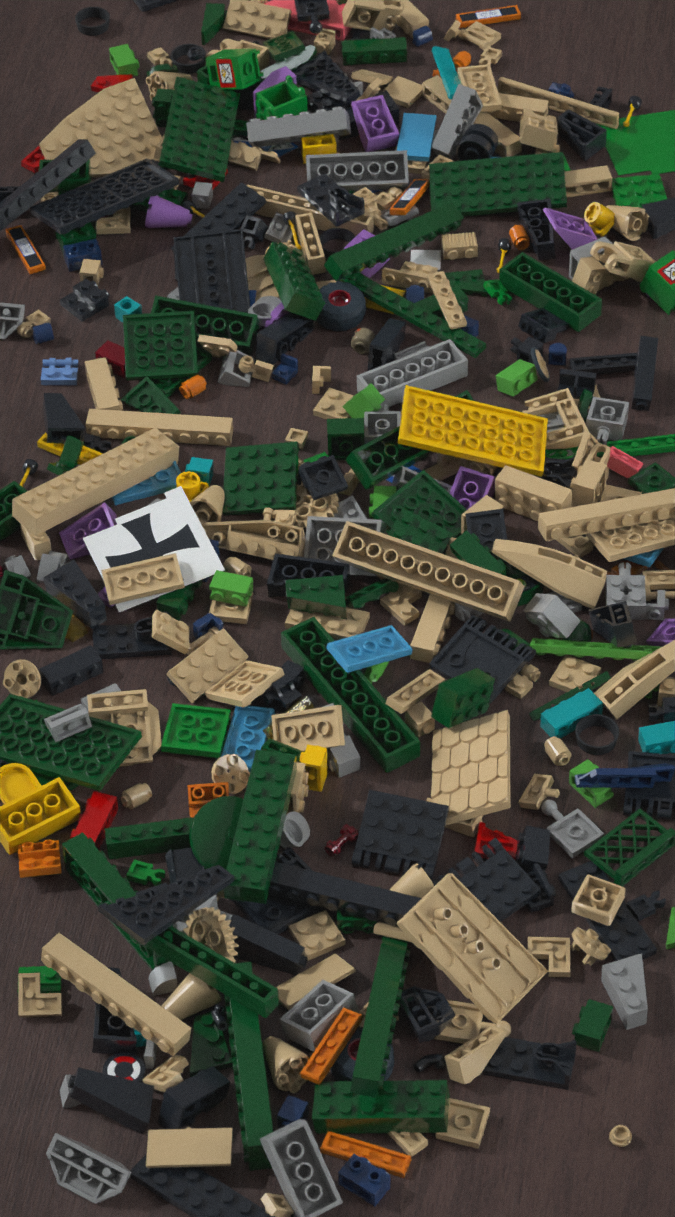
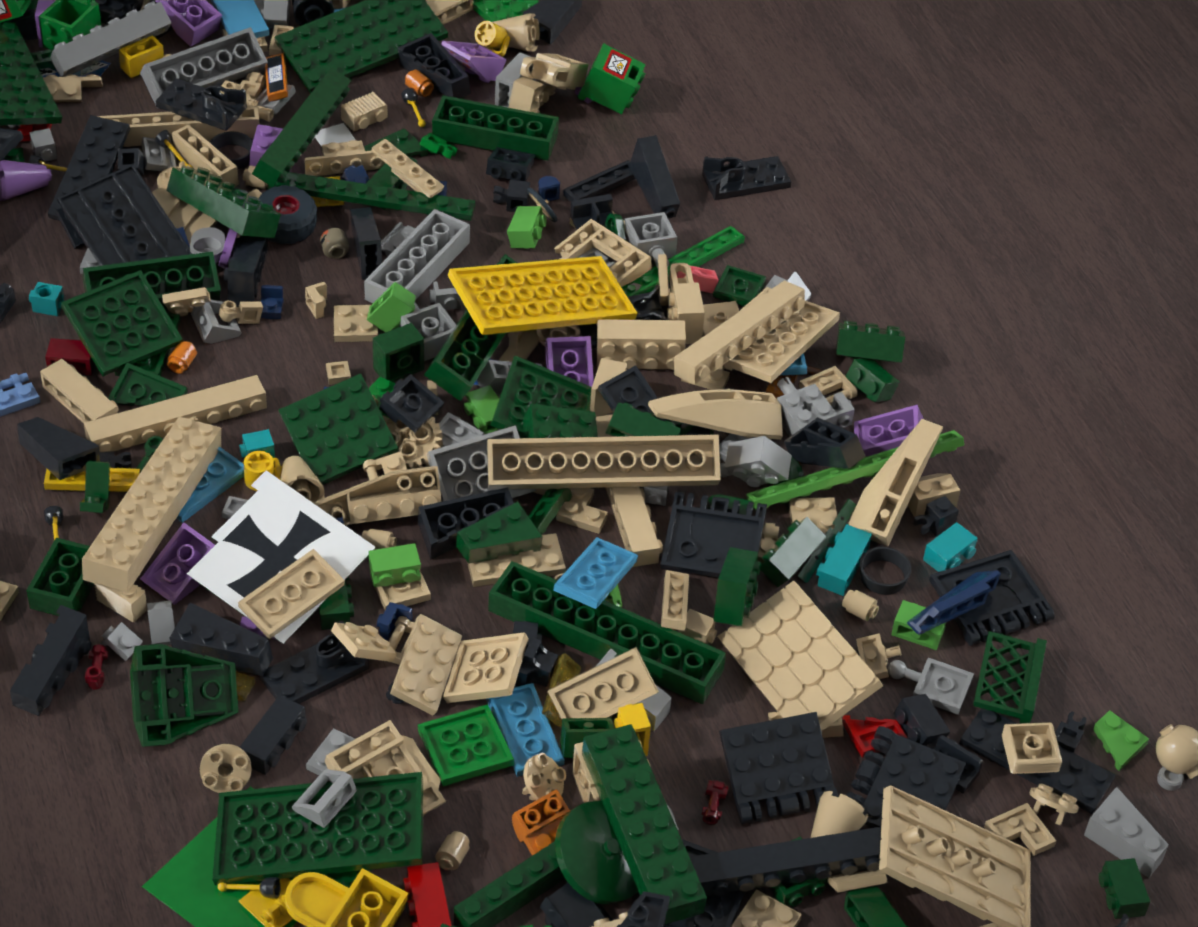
camera: 35 degrees left, 0 degrees up
(532, 691) = (791, 551): none -> brick

